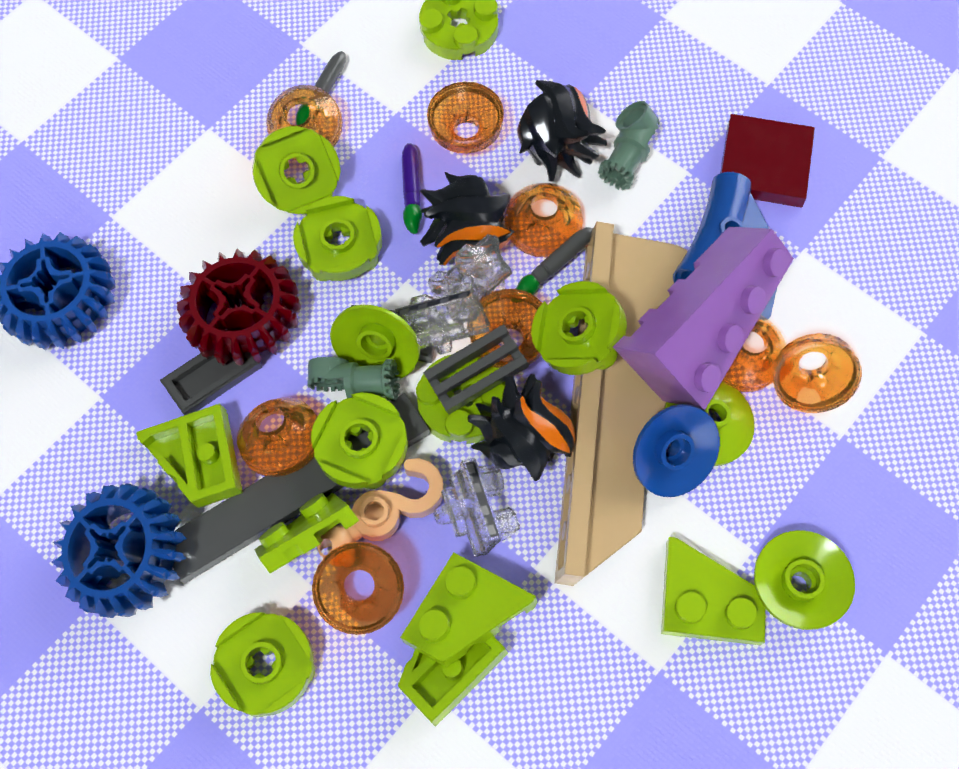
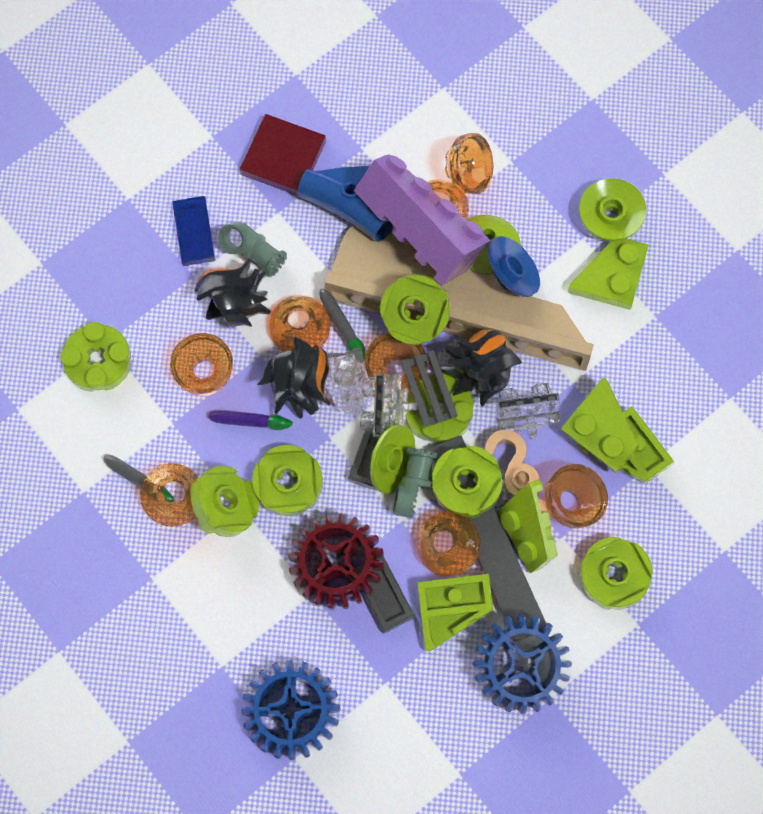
camera: 80 degrees left, 5 degrees up
(644, 81) = (194, 231): none -> clear blue tile

